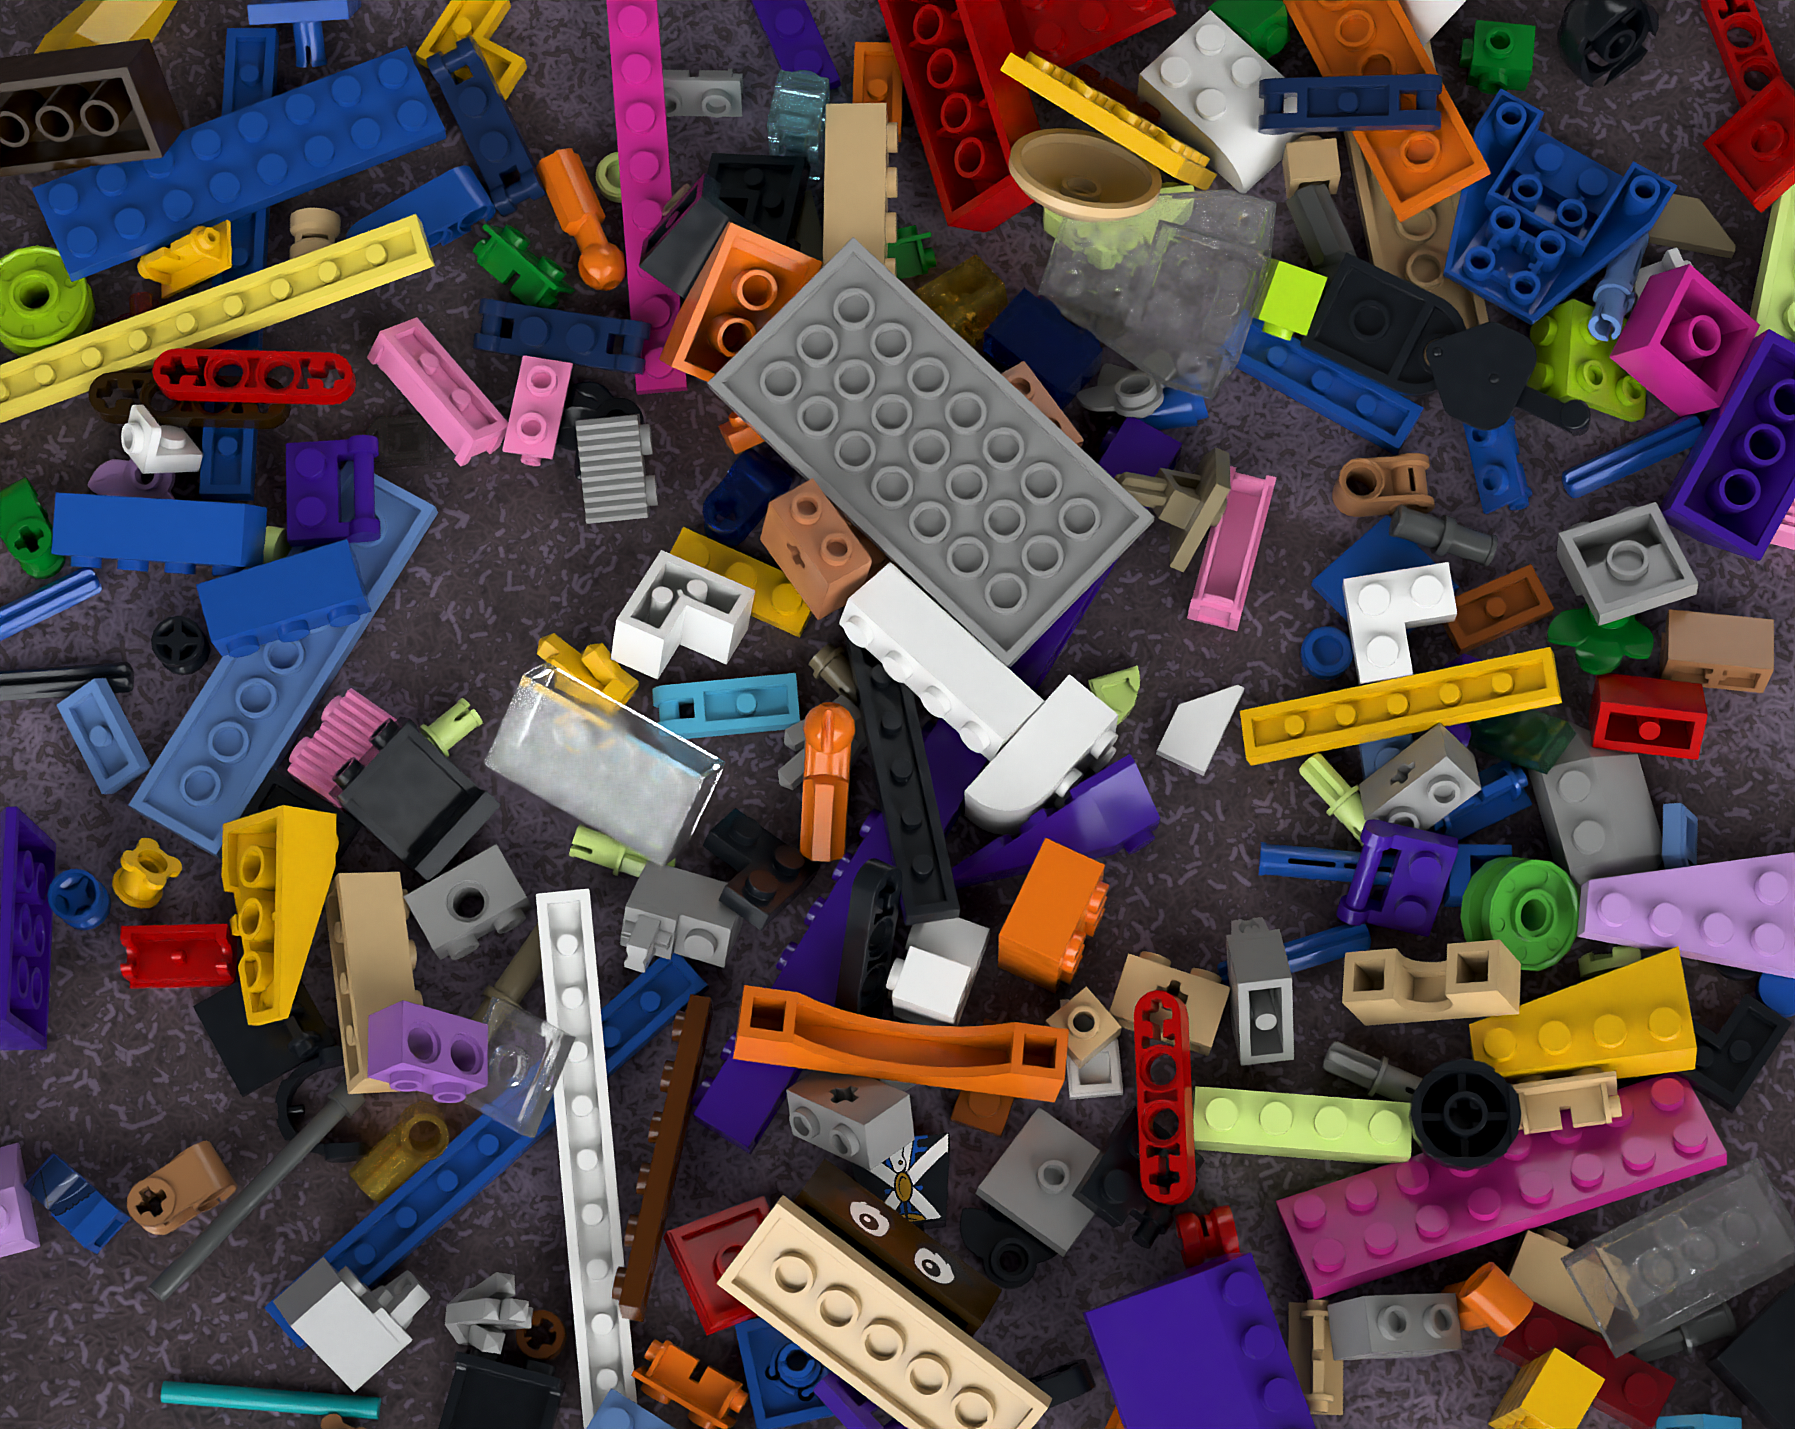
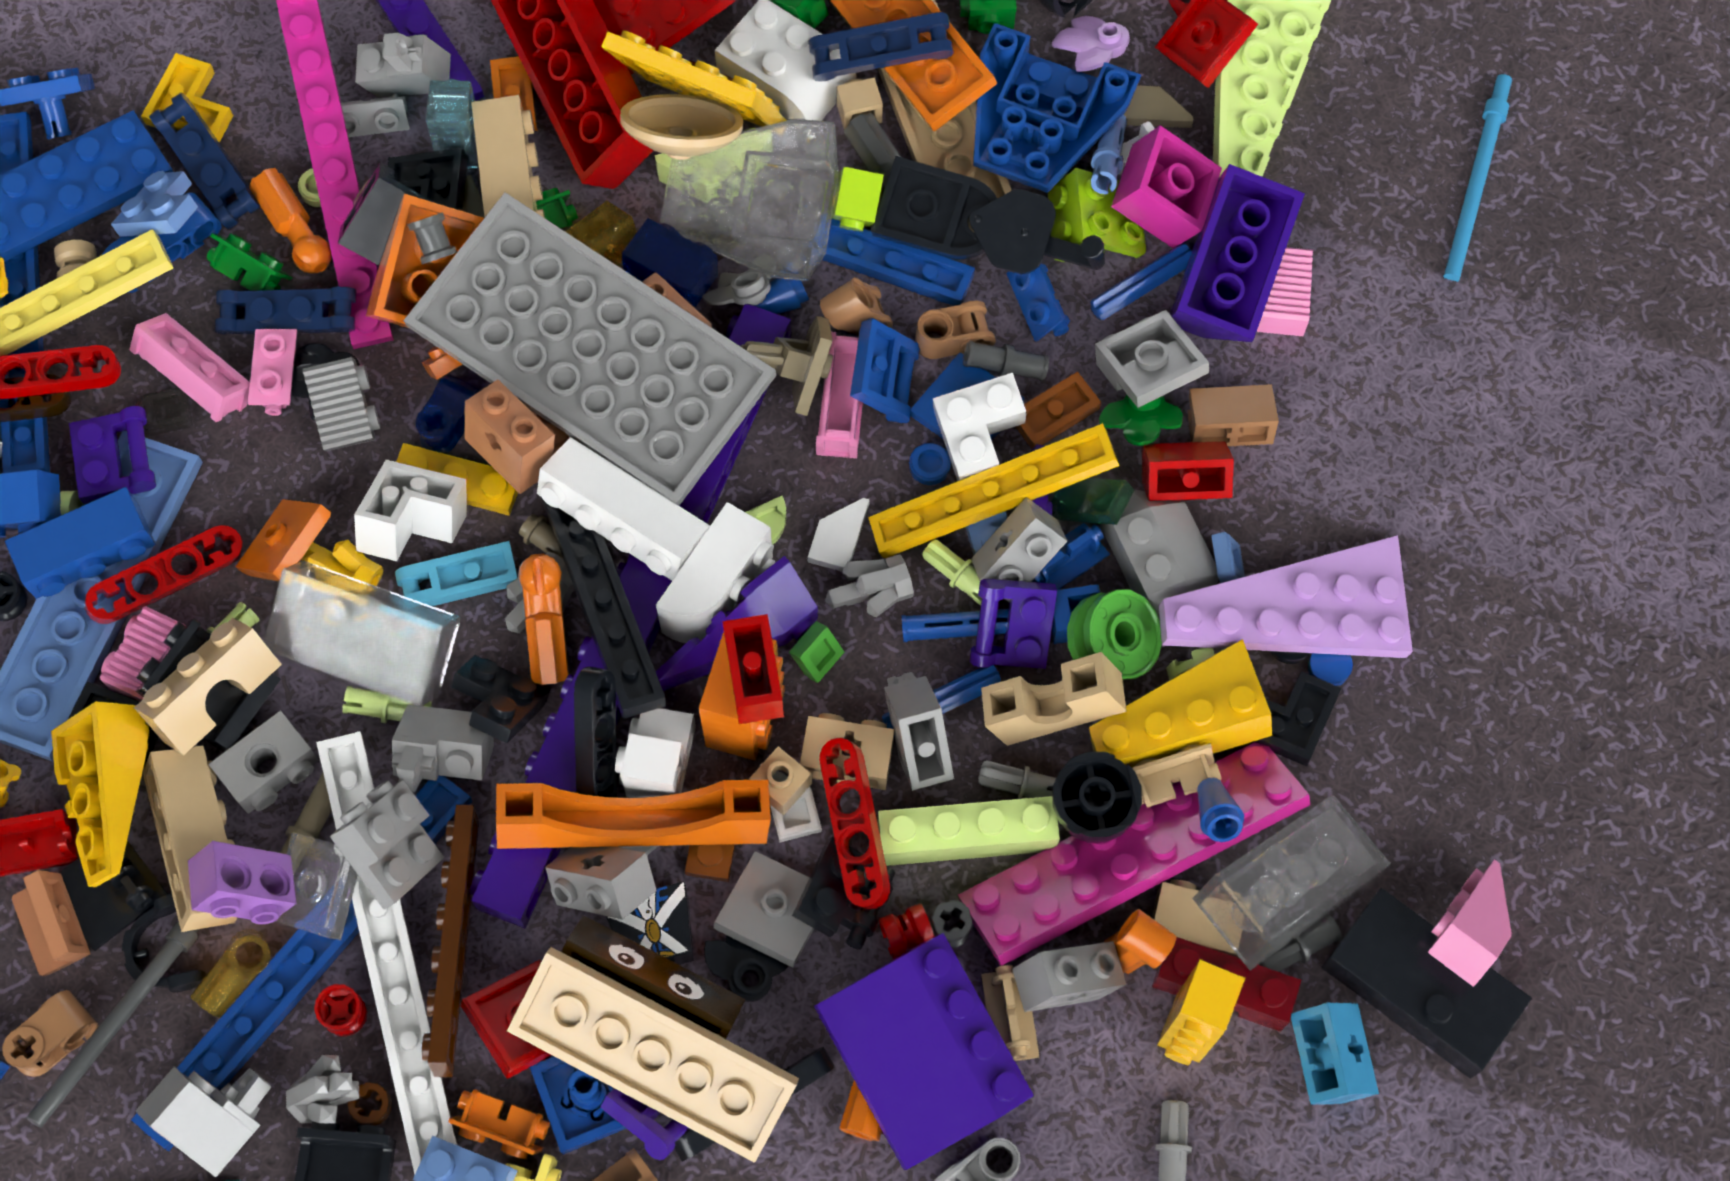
camera: 15 degrees left, 5 degrees down
(195, 1056) = (49, 922): none -> nougat panel
(379, 656) = (166, 577): none -> red beam
(379, 819) = (178, 703): none -> tan arch
(423, 182) = (157, 206): none -> medium blue plate
(515, 1211) = (334, 1004): none -> red wheel
(525, 630) = (283, 539): none -> orange plate
(605, 1030) = (388, 842): none -> light grey plate
(745, 38) = (401, 65): none -> light grey hinge
(756, 283) = (432, 238): none -> dark grey bush
(1072, 901) = (753, 669): none -> red brick
(1150, 872) = (816, 652): none -> bright green plate
(1247, 792) = (879, 580): none -> light grey rock
(1258, 1220) = (946, 911): none -> dark grey bush
(1265, 442) = (852, 305): none -> medium nougat piece
(1288, 526) = (884, 370): none -> blue plate
(1610, 1157) = (1218, 811): none -> blue cone
(1621, 125) = (1093, 41): none -> lavender plate

